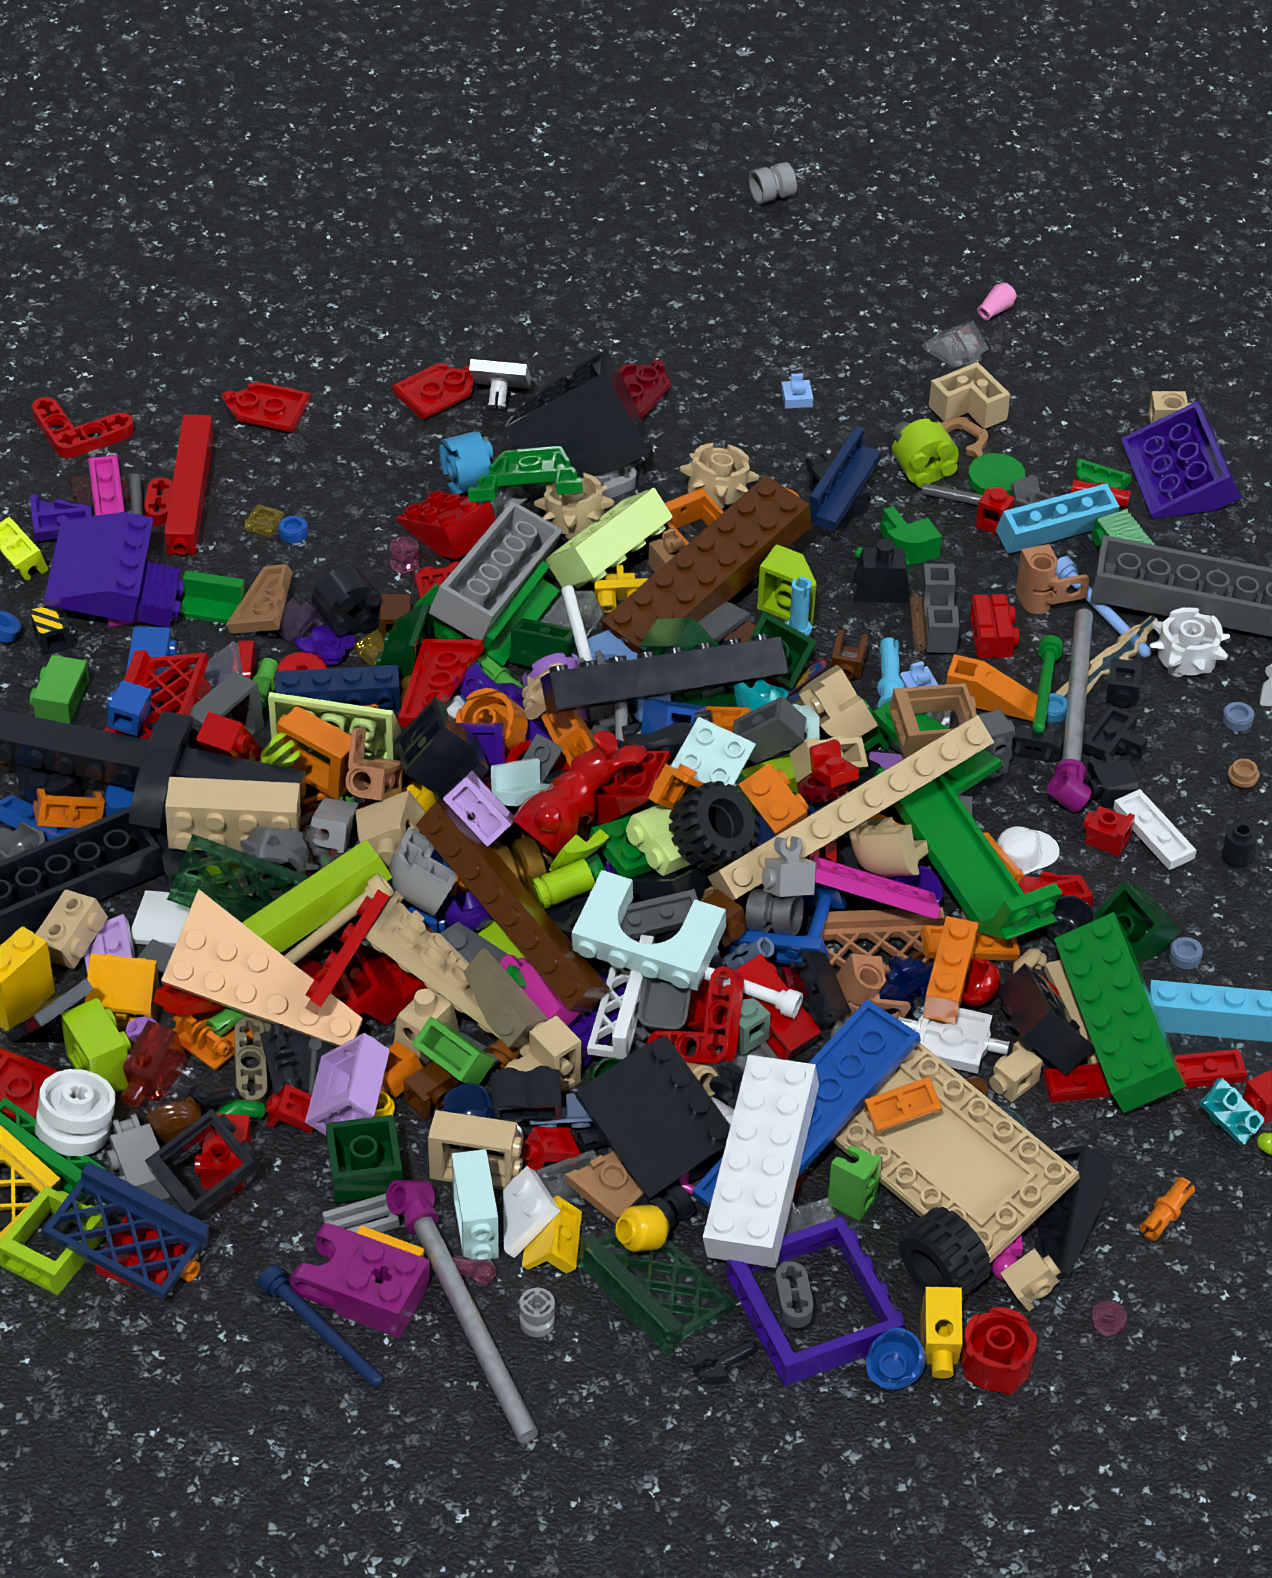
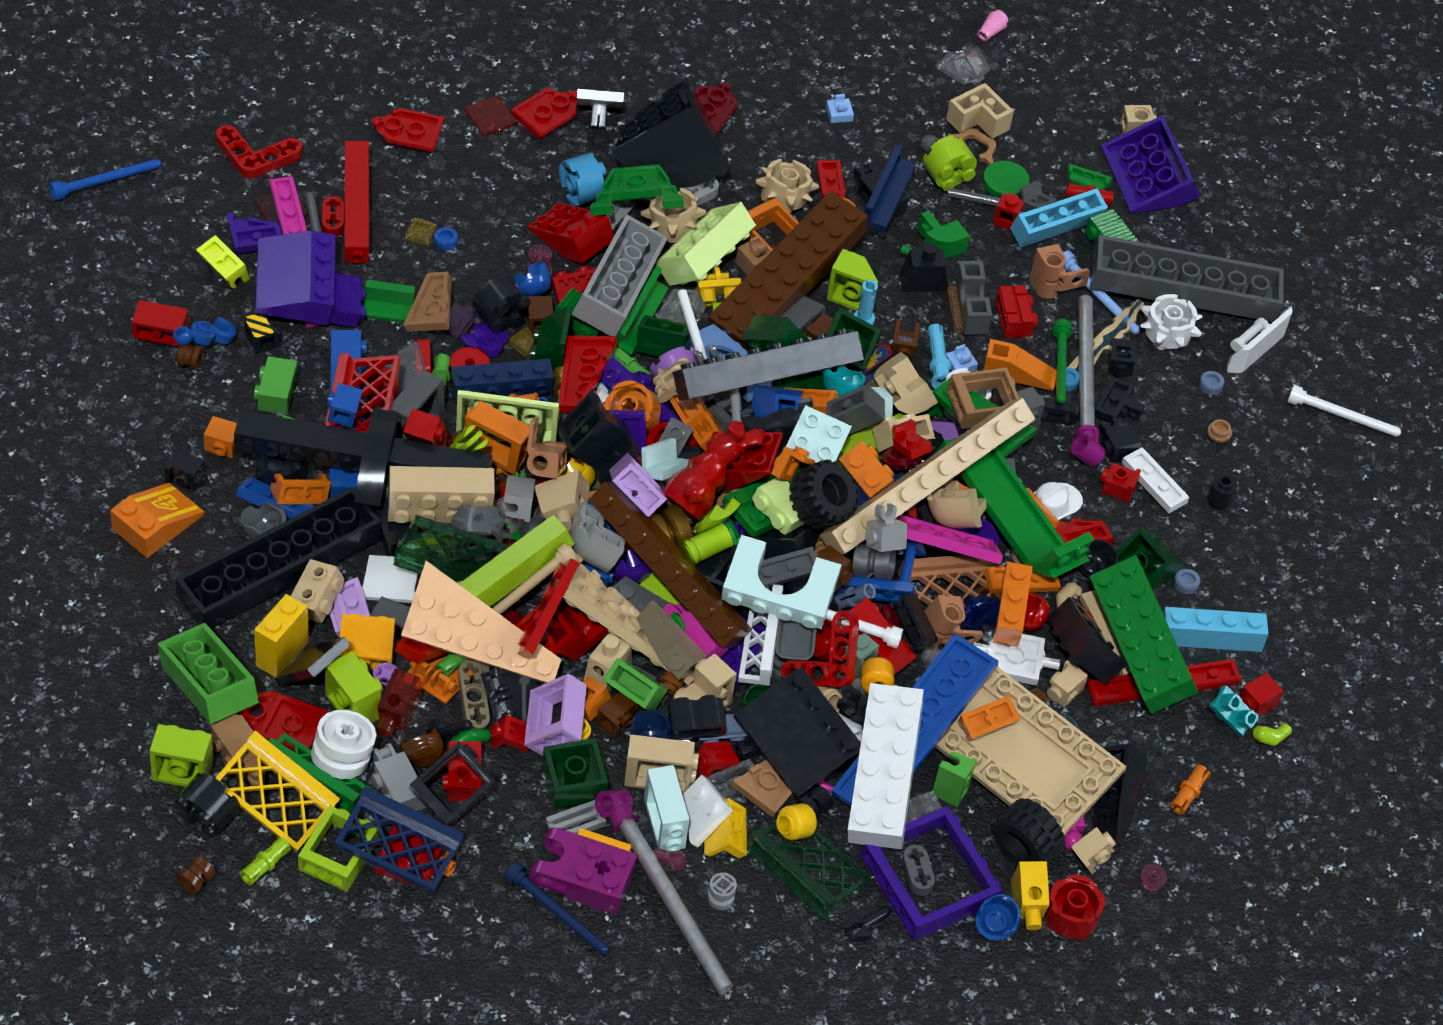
camera: 10 degrees left, 5 degrees up
(367, 393) = (490, 116): none -> clear red piece
(395, 577) = (537, 280): none -> blue hair
(767, 1043) = (876, 671): none -> light orange head
(777, 465) = (830, 177): none -> red hinge

